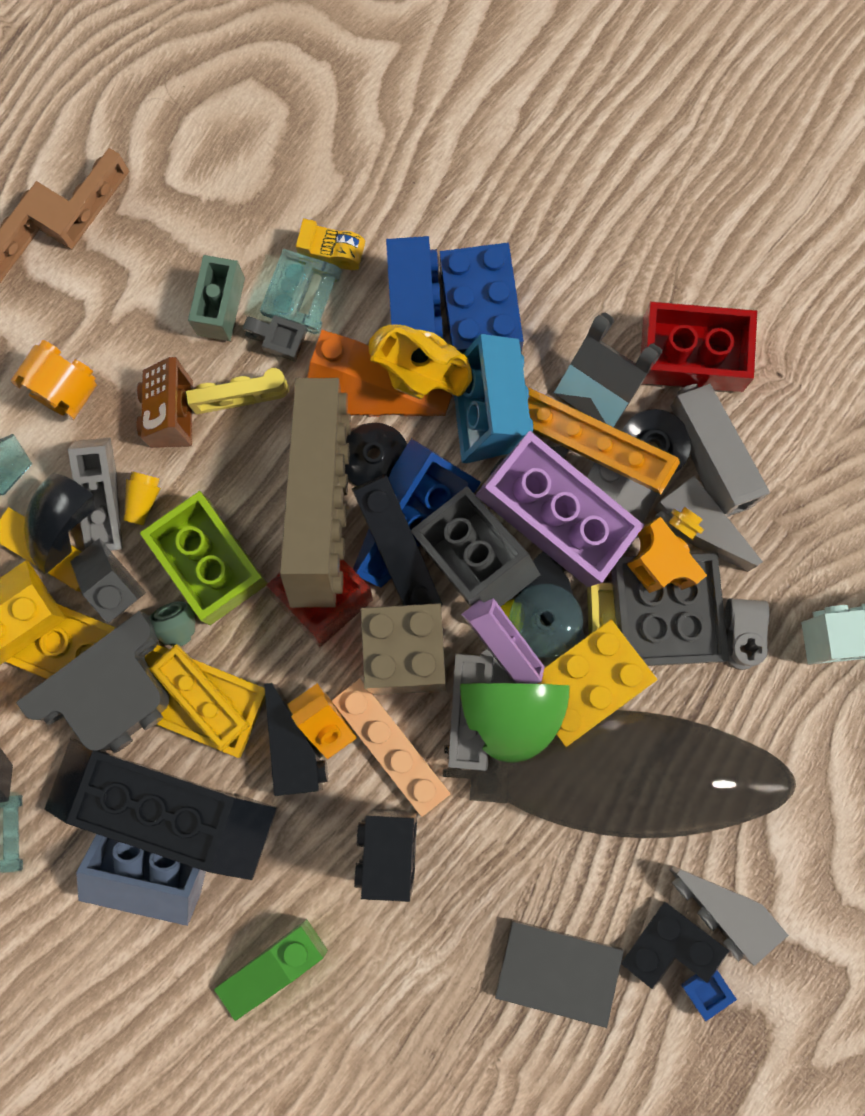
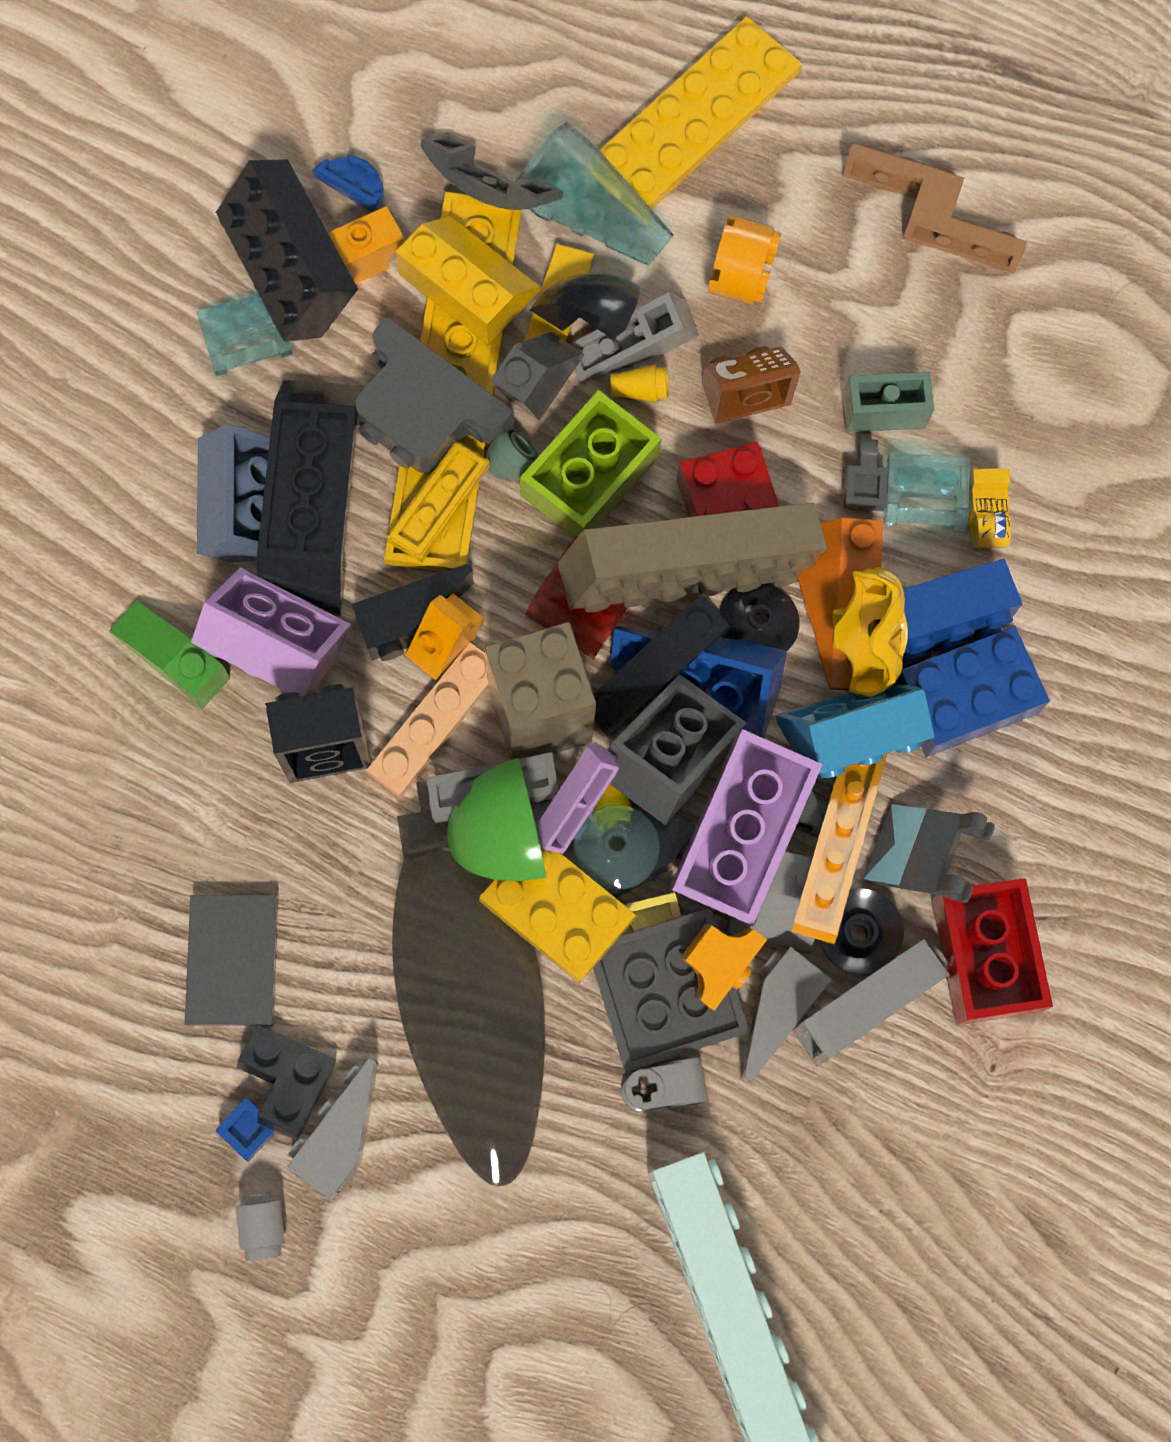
camera: 65 degrees right, 5 degrees down
(239, 392) = (788, 455): light yellow plate -> none
(257, 449) = (726, 482): none -> red brick
(282, 876) = (270, 633): none -> lavender brick
(686, 522) = (770, 976): yellow plate -> none
(792, 999) = (260, 1226): none -> light grey brick

